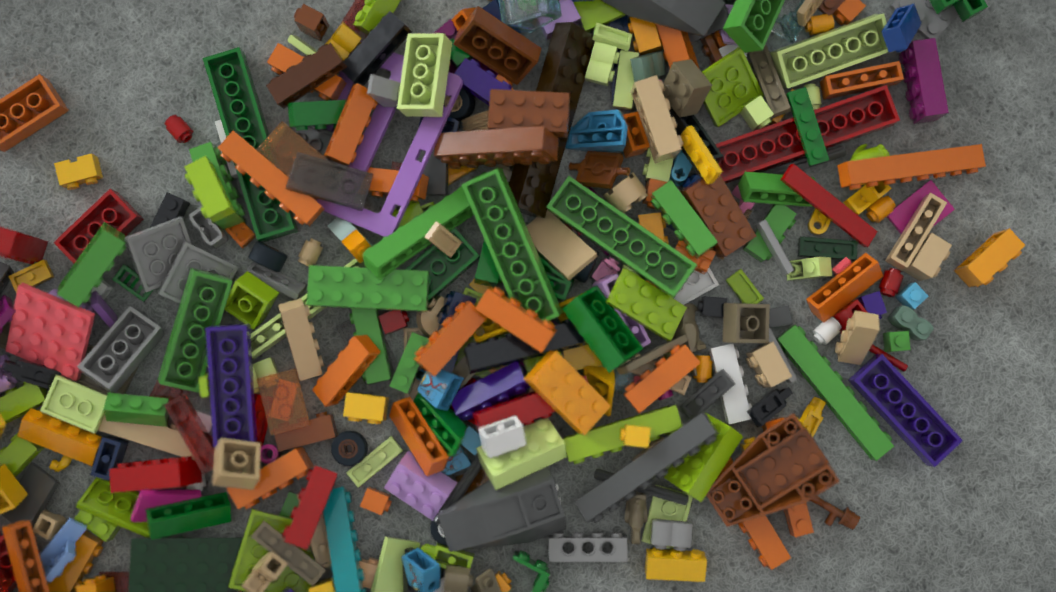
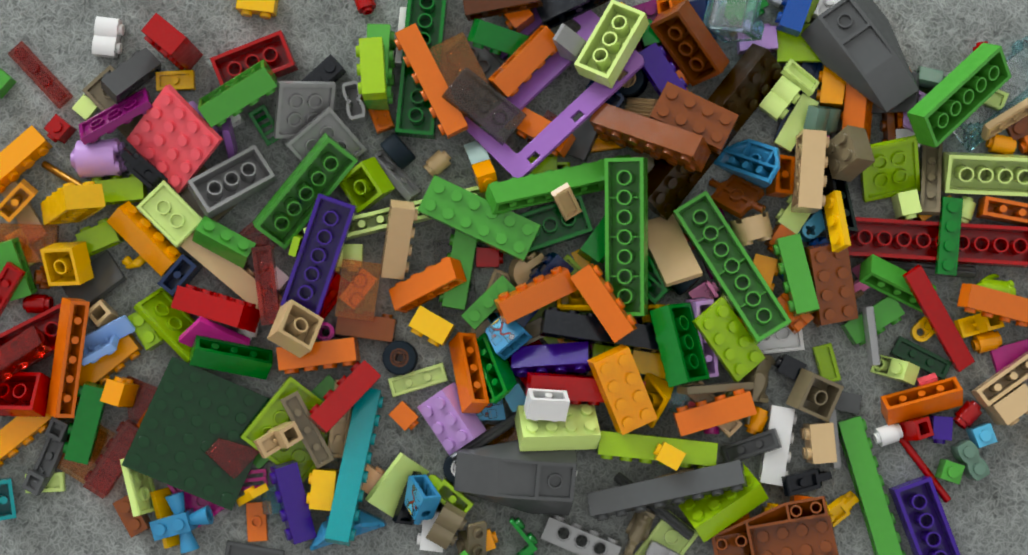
camera: 35 degrees right, 0 degrees up
(857, 337) = (913, 452): tan brick -> none

